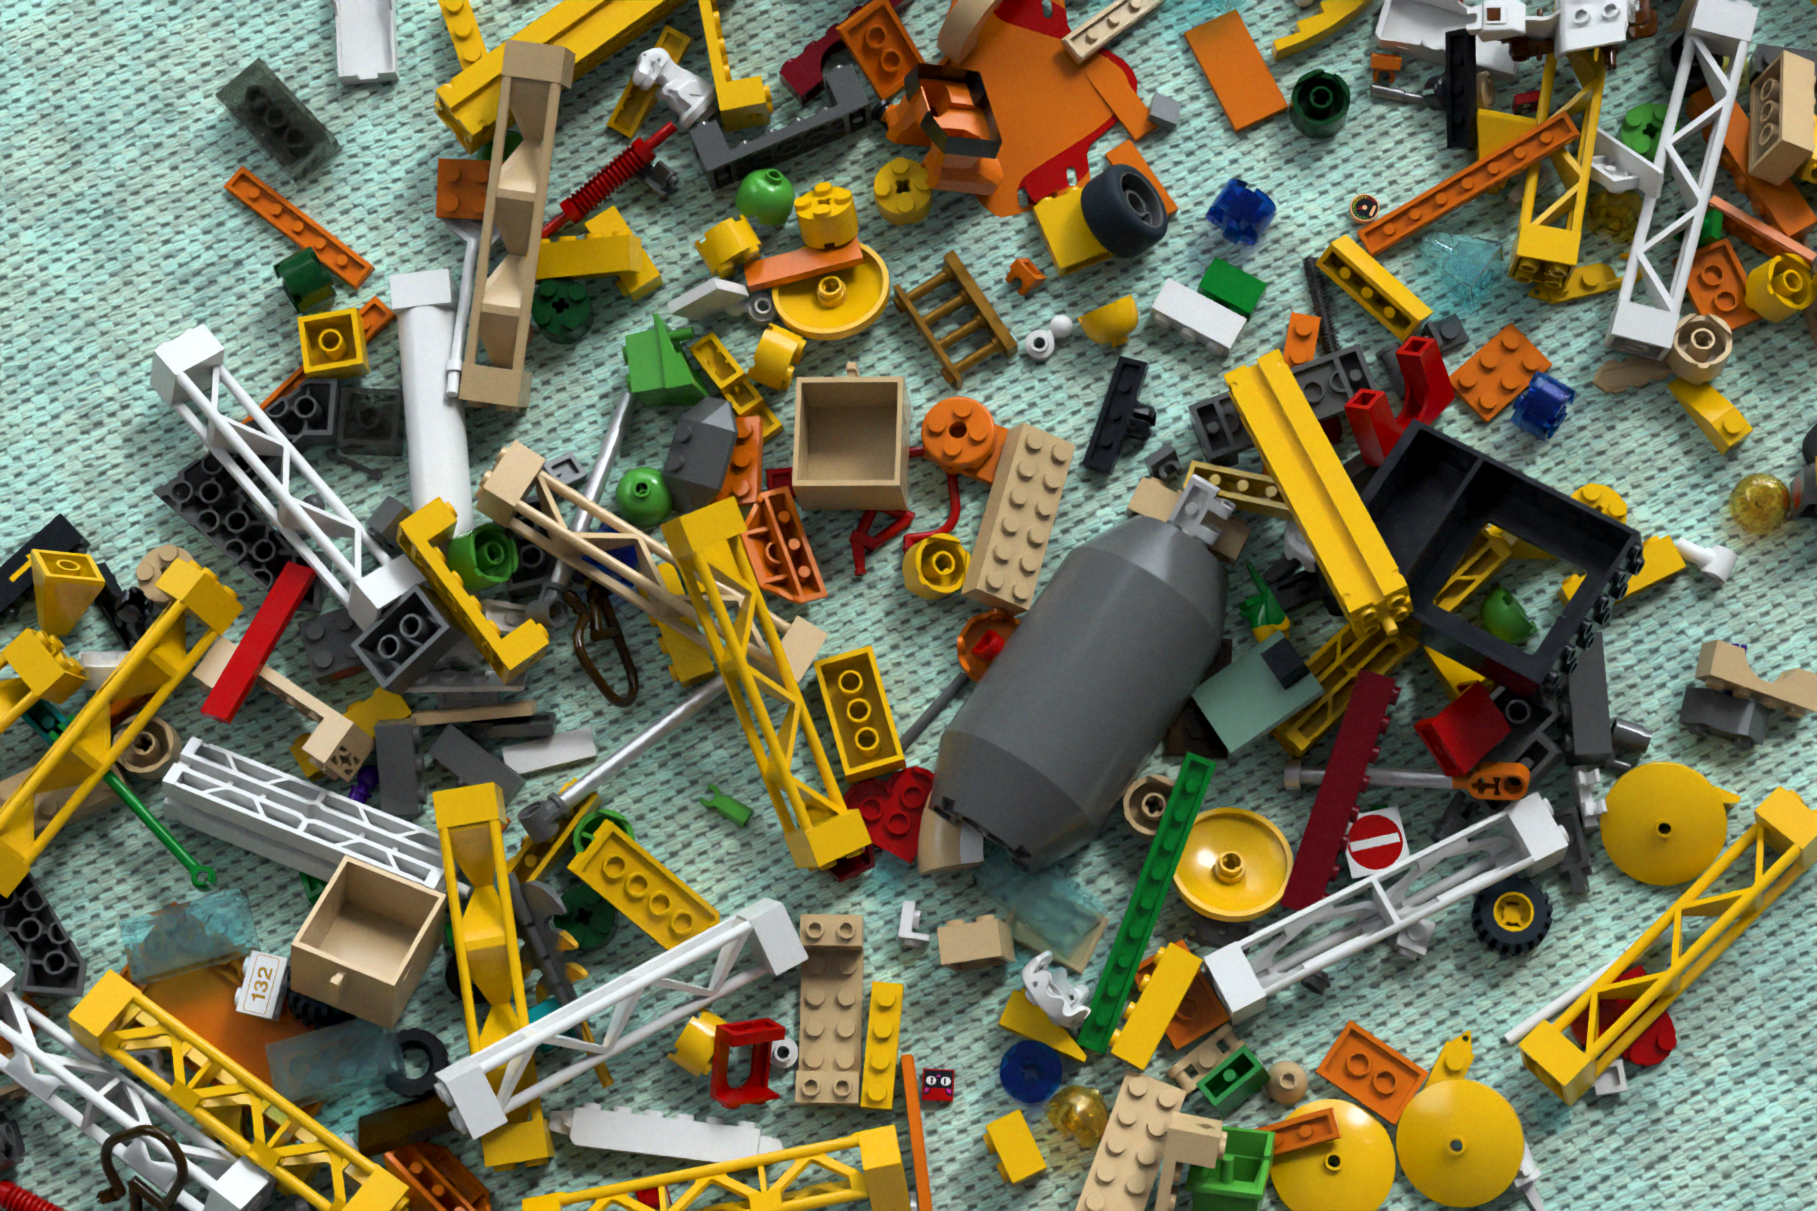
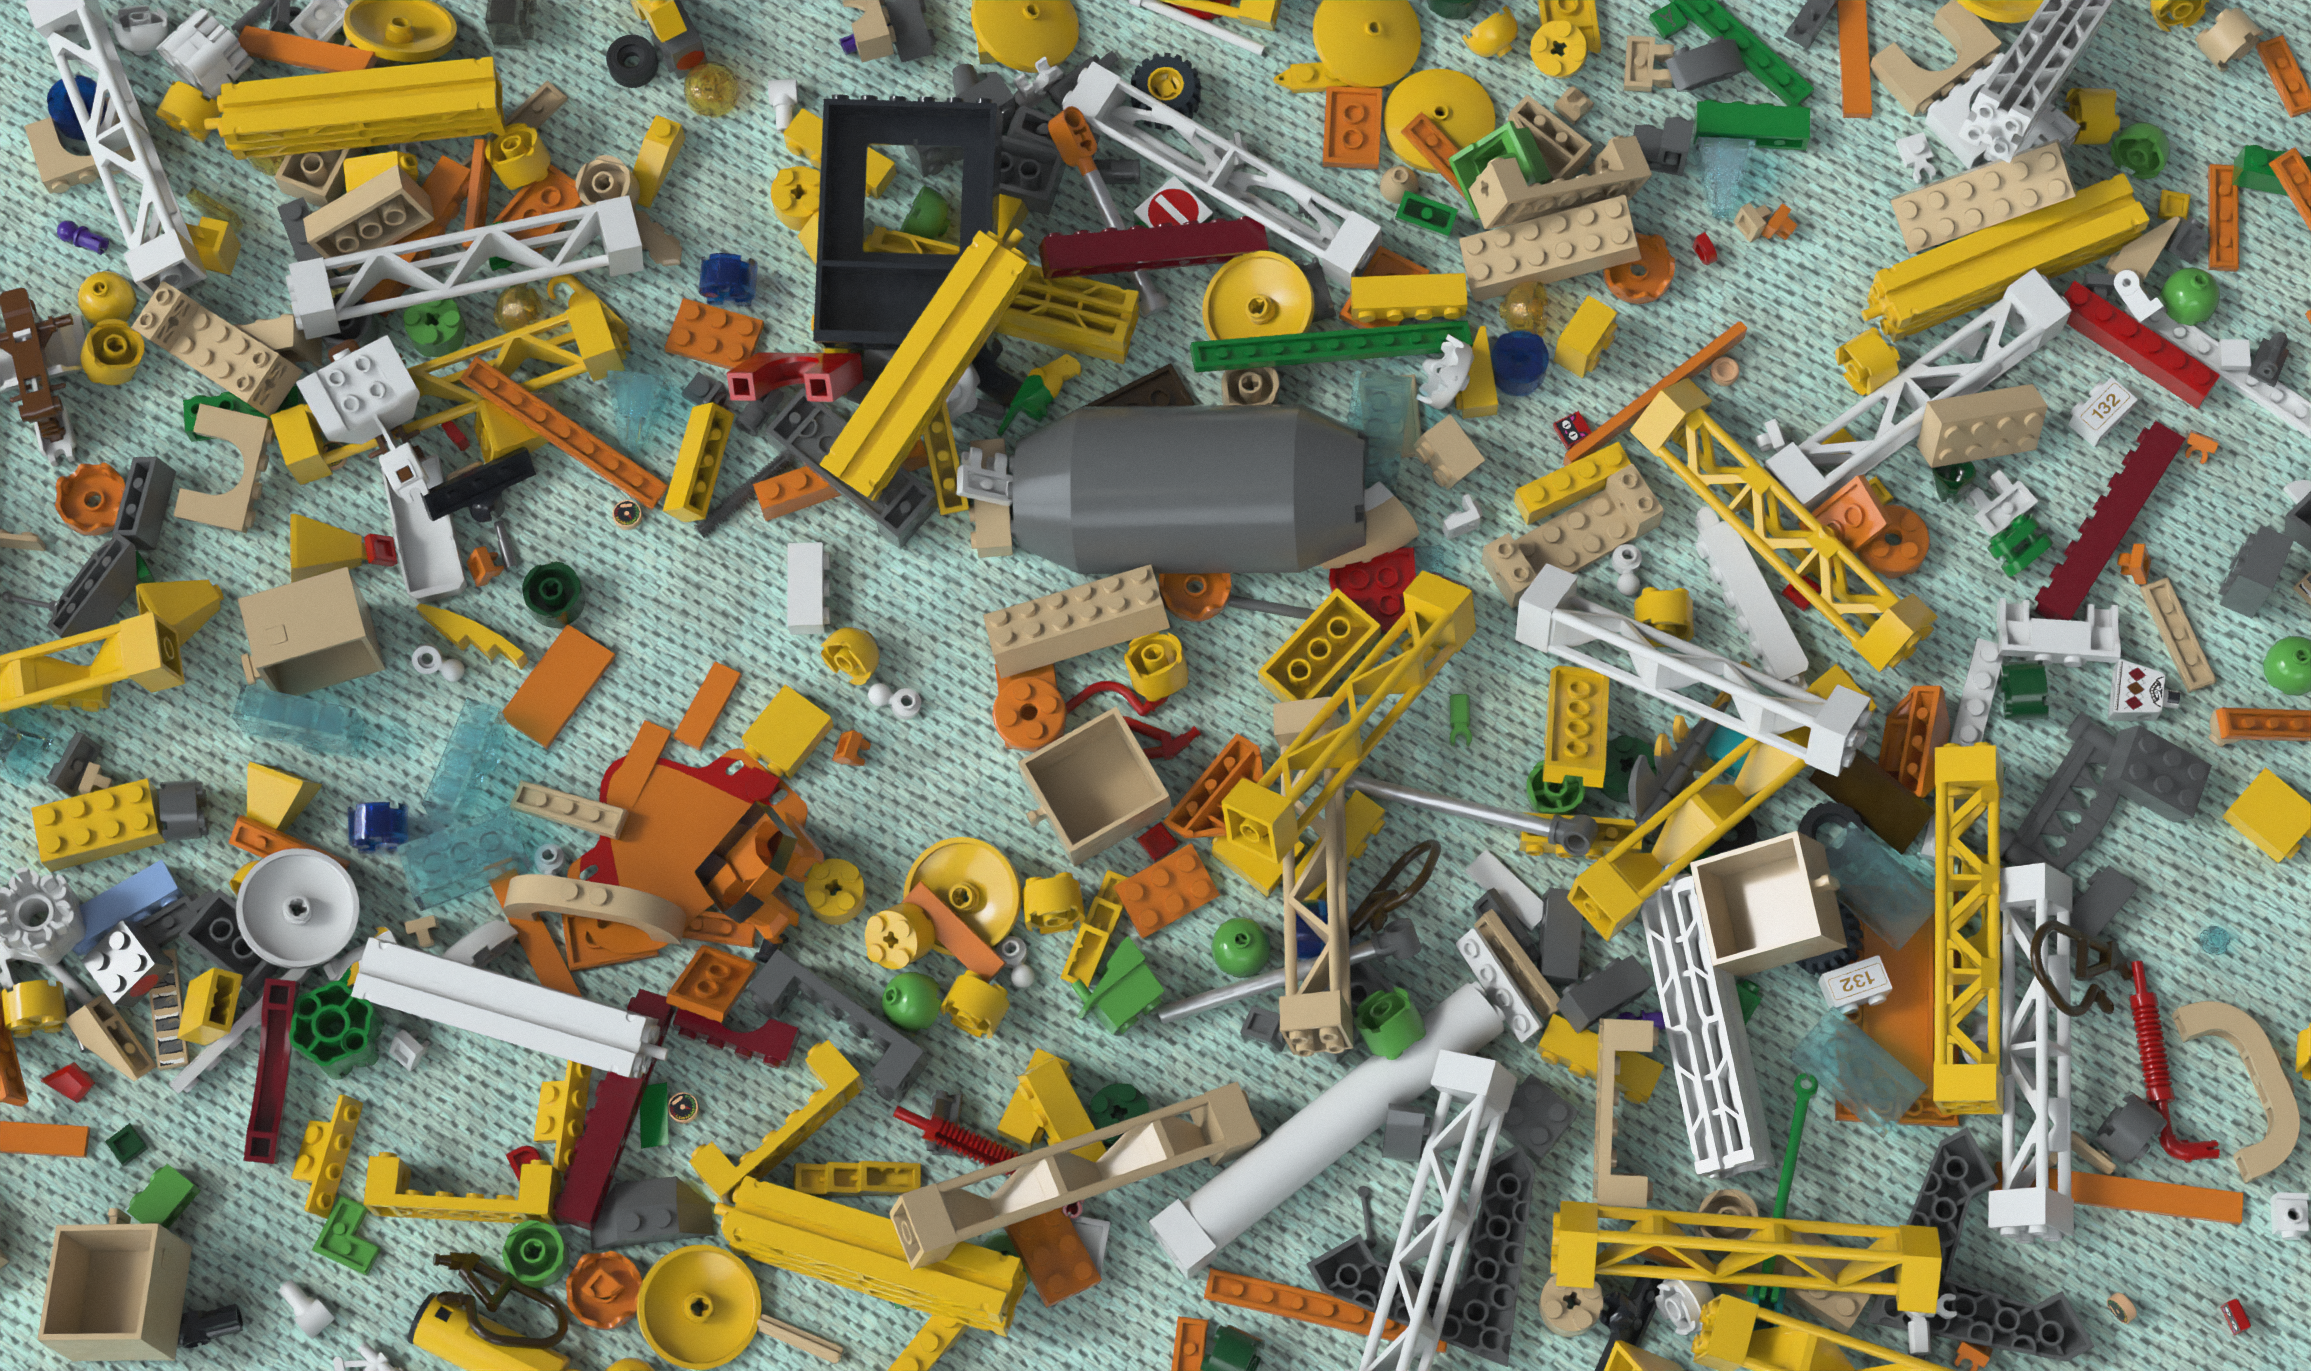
camera: 125 degrees left, 5 degrees down
(258, 643) = (1584, 1160): red tile -> none
(333, 344) = (1277, 1289): yellow brick -> none
(371, 422) = (1322, 1216): clear smoke brick -> none
(408, 639) = (1500, 1033): dark grey brick -> none
(420, 538) = (1408, 1069): yellow plate -> none
(455, 364) = (1234, 1158): white bar -> none
(505, 614) = (1421, 986): white plate -> none
(682, 90) = (852, 1132): white animal -> none
(700, 454) = (1177, 908): dark grey wedge -> none
(707, 299) = (1038, 987): white tile -> none
(755, 1090) = (1643, 573): red panel -> none
(968, 294) = (909, 759): pearl gold fence -> none
(988, 646) = (1198, 583): red tile -> none
(1120, 416) = (932, 602): black plate -> none
(1124, 211) = (751, 686): black wheel -> none
(1163, 463) = (952, 543): dark grey tile -> none
(1164, 111) = (631, 720): tile -> none
(1205, 1058) = (1421, 248): tan plate -> none
(1232, 288) = (766, 575): green brick -> none
(1241, 212) = (693, 600): clear blue brick -> none
(1257, 692) = (1110, 350): sand green piece -> none
(1463, 729) = (1049, 172): red panel -> none
(1622, 168) = (485, 314): white bracket -> none

